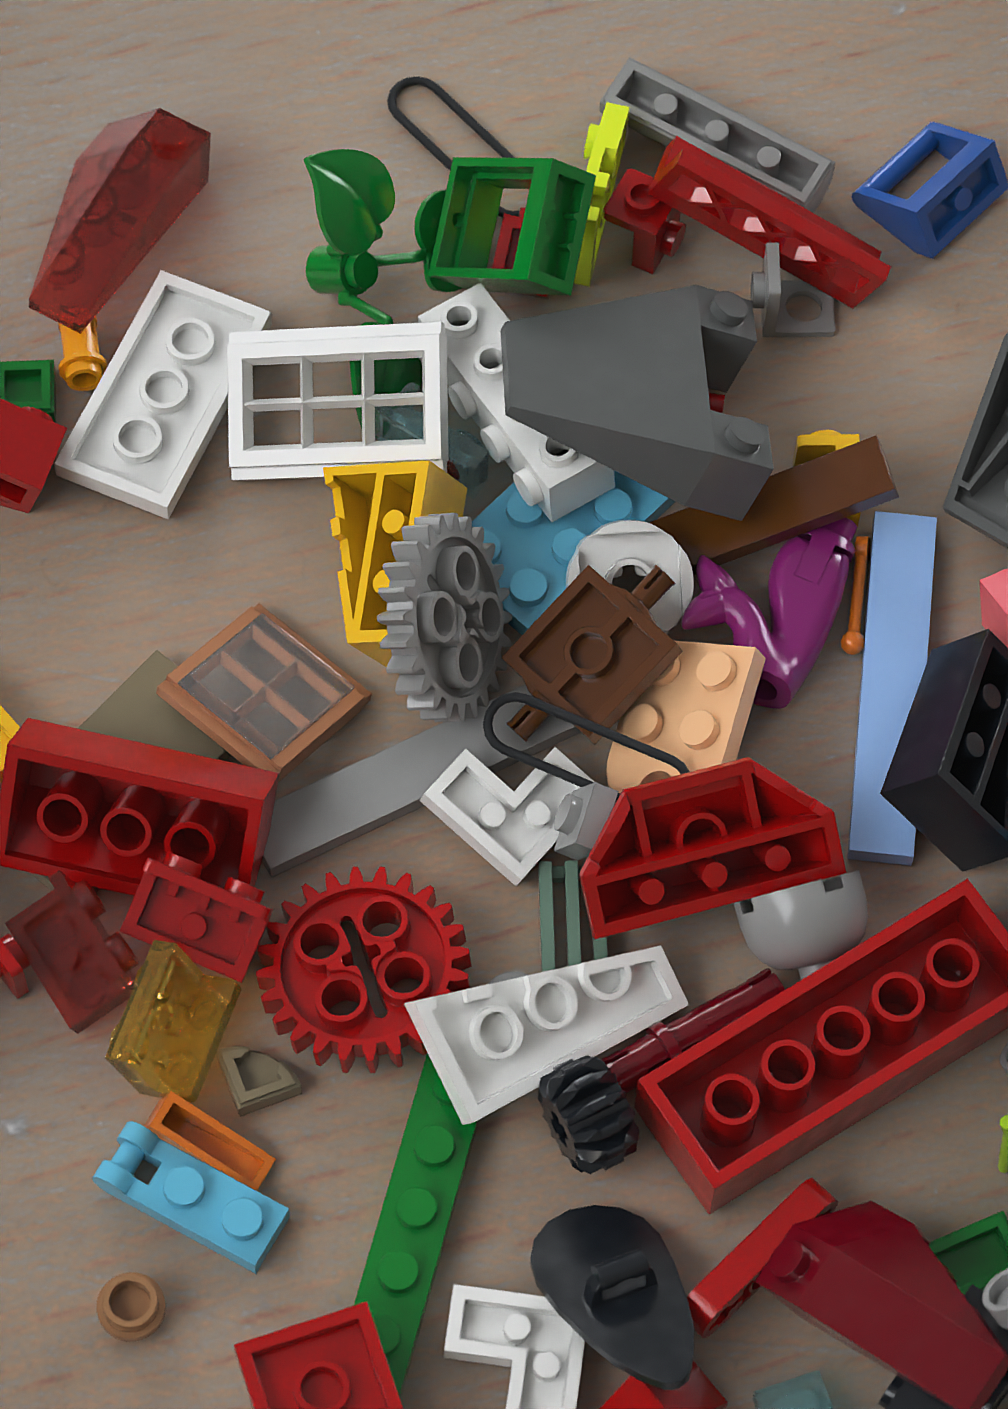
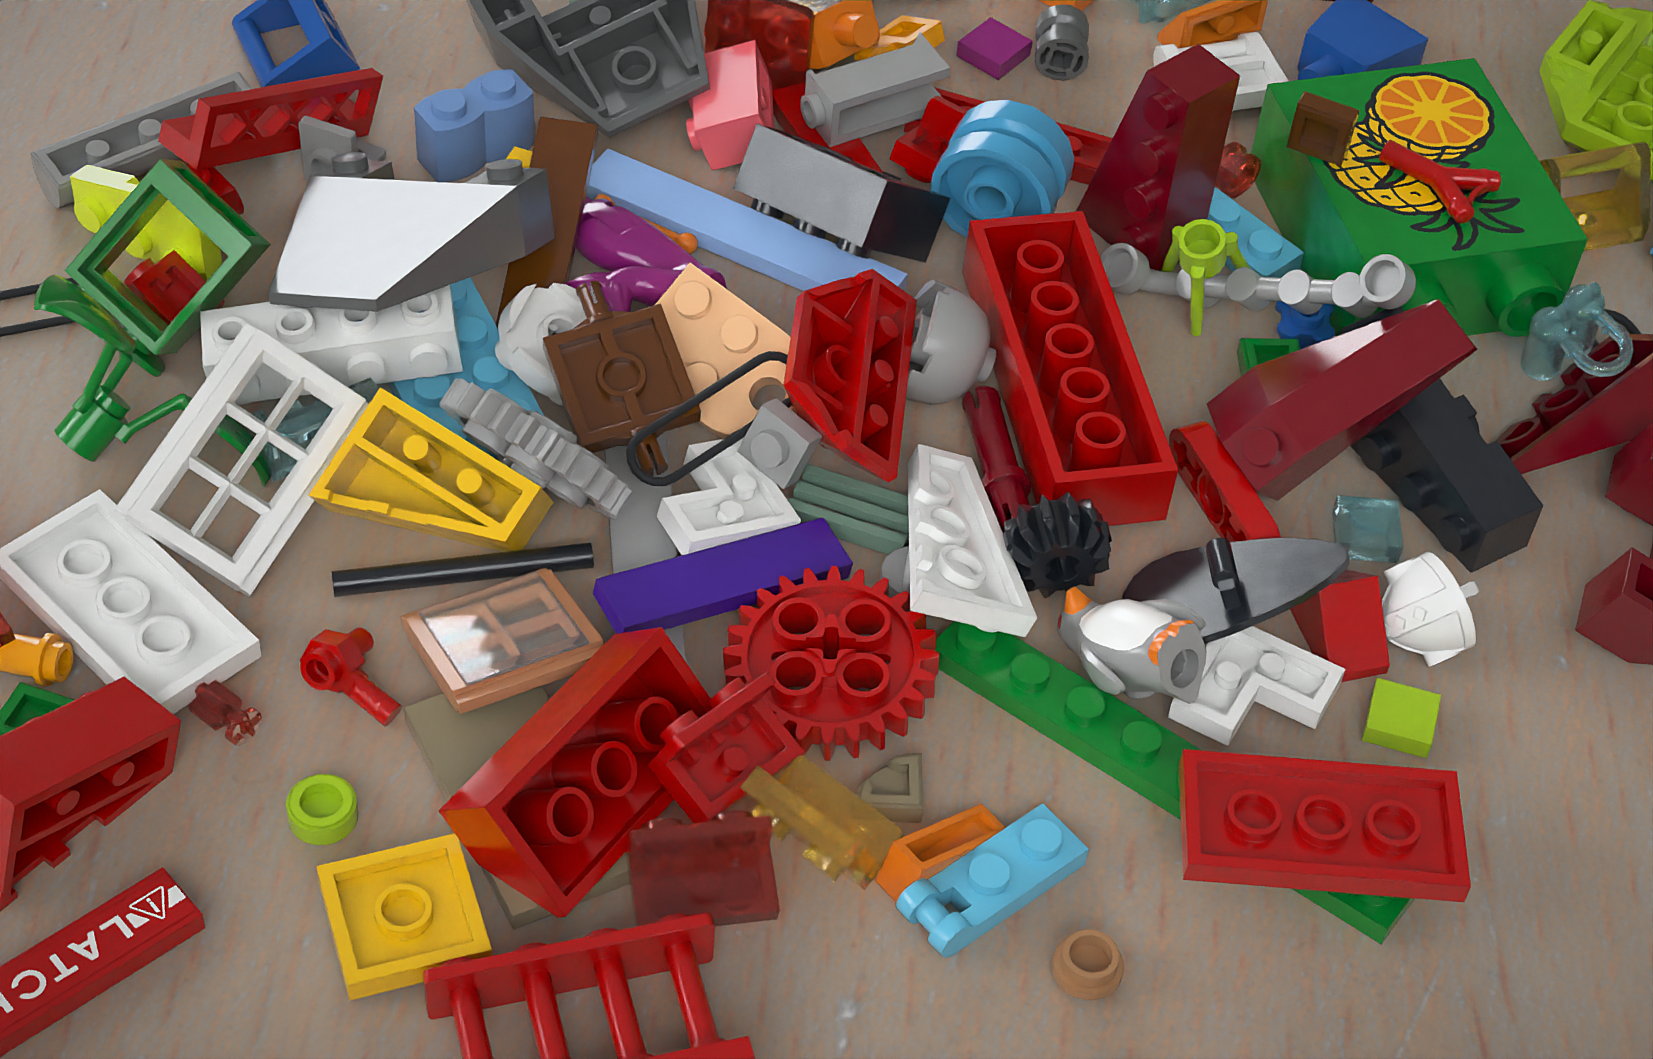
camera: 70 degrees left, 15 degrees down
(33, 638) = (322, 809): none -> lime tile
(96, 515) = (221, 708): none -> clear red piece
(173, 575) = (335, 664): none -> red piece
(332, 621) = (461, 569): none -> black bar
(418, 841) = (718, 577): none -> dark purple tile
(492, 1224) = (1136, 645): none -> light grey animal
(883, 387) = (474, 124): none -> medium blue brick

